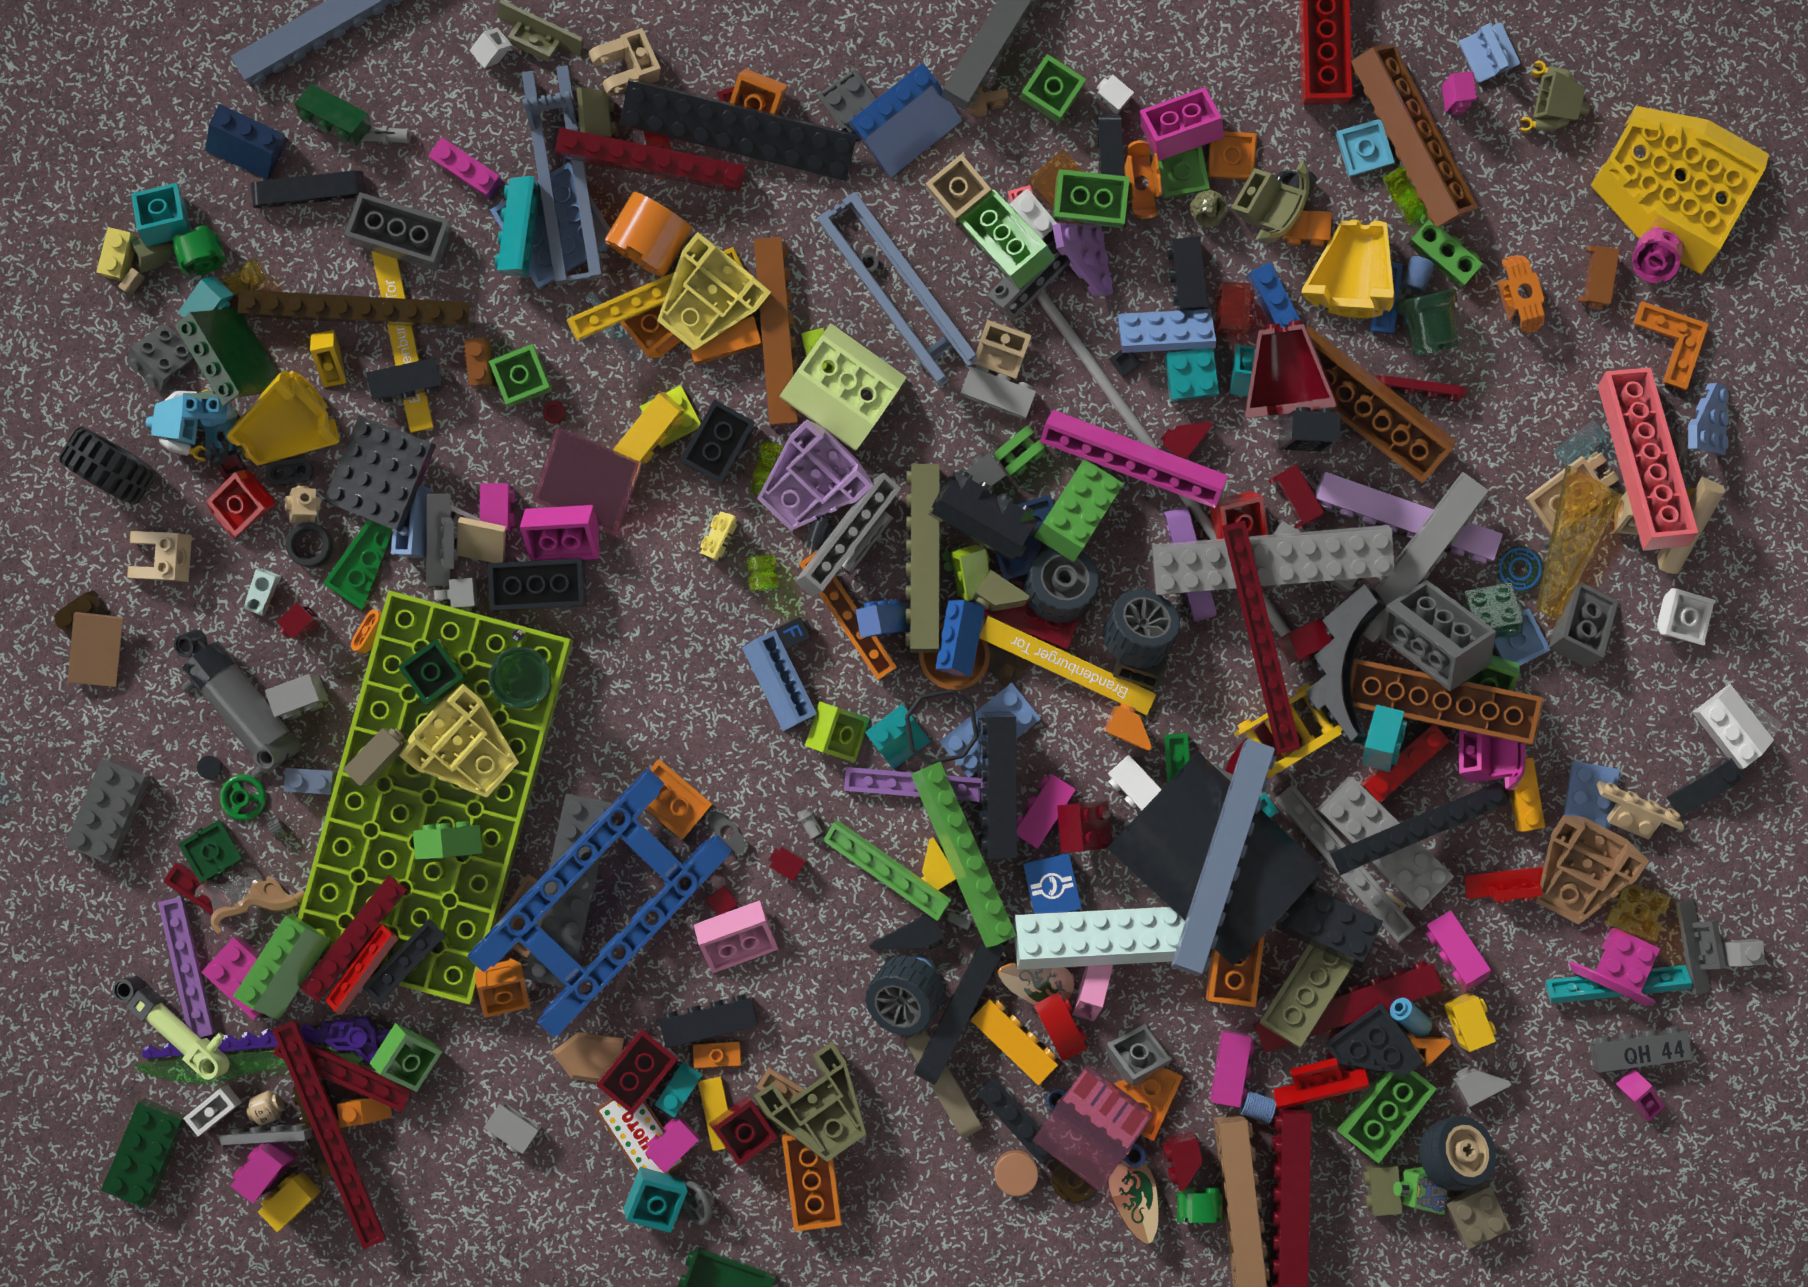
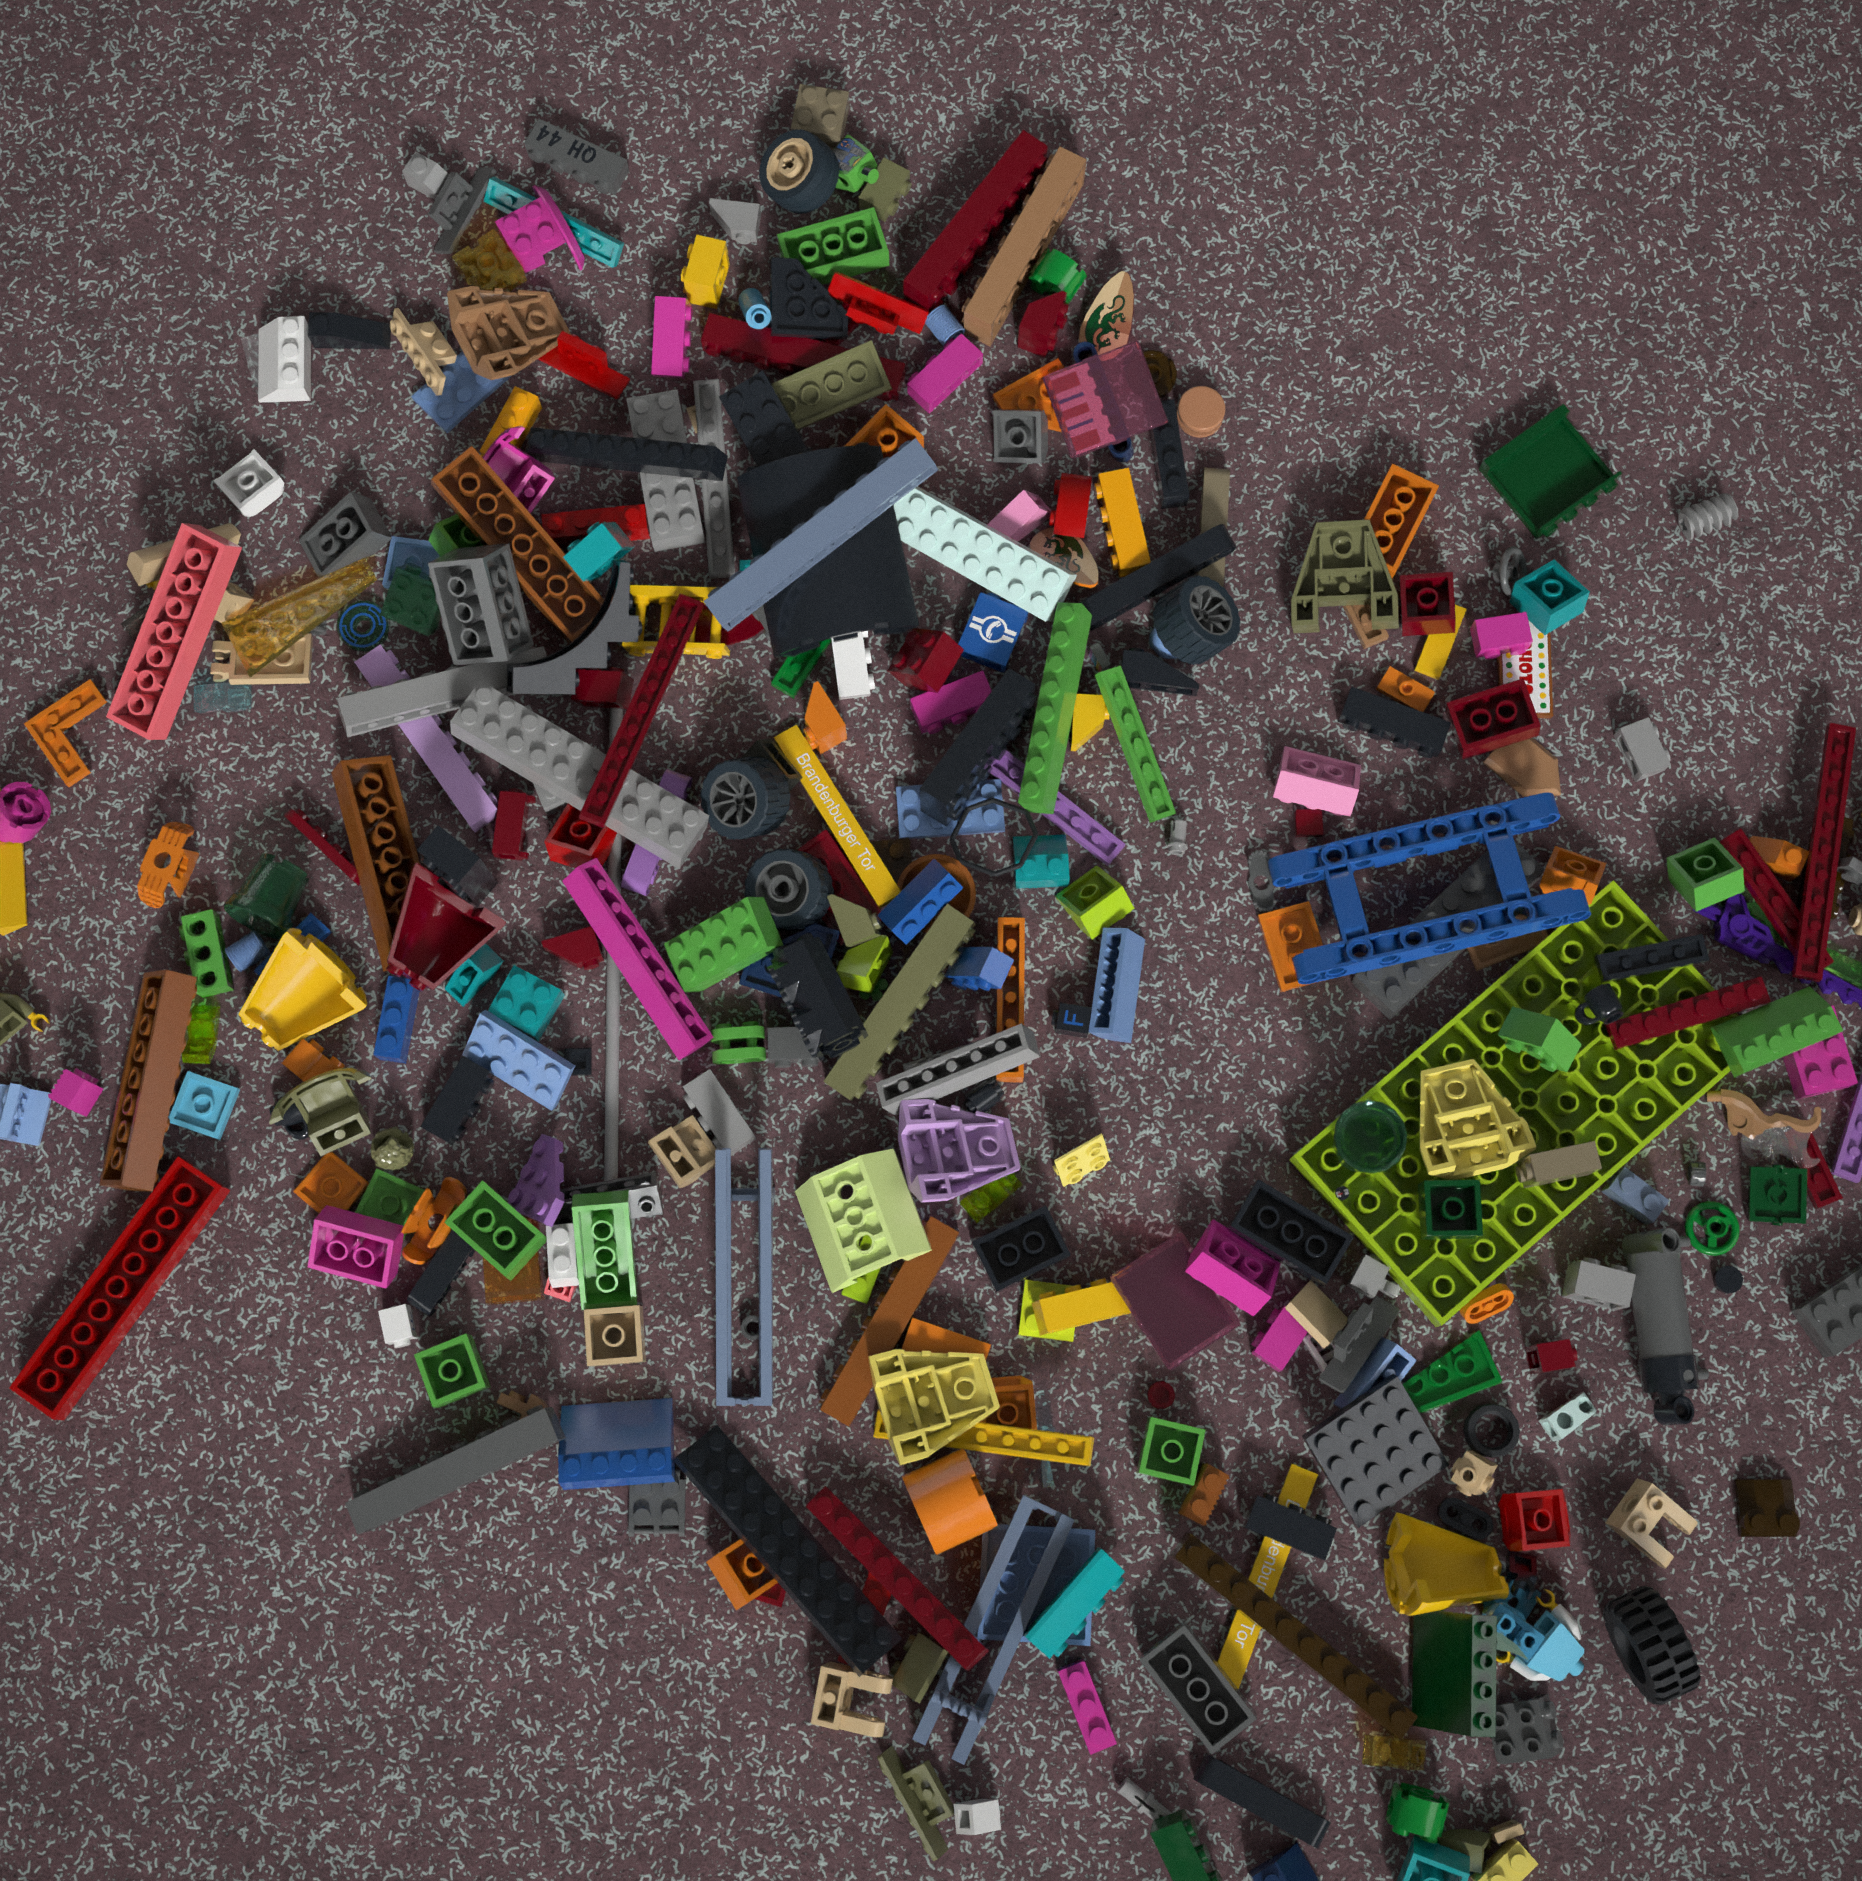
camera: 145 degrees left, 10 degrees down
(95, 649) = (1774, 1472): medium nougat tile -> none
(207, 295) = (1442, 1752): teal brick -> none
(328, 358) = (1353, 1607): yellow slope -> none
(361, 969) = (1699, 978): red plate -> none
(418, 900) = (1603, 1004): none -> black piece
(678, 1089) = (1463, 680): teal slope -> none
(762, 572) = (1064, 1094): clear neon green wheel -> none
(786, 862) = (1224, 814): dark red brick -> none
(1233, 309) = (440, 1034): clear red brick -> none
(1431, 1047) = (755, 276): orange slope -> none
(1600, 277) = (85, 832): dark orange brick -> none
(1640, 1094) = (604, 123): dark pink slope -> none
(1708, 430) = (102, 624): medium blue plate -> none

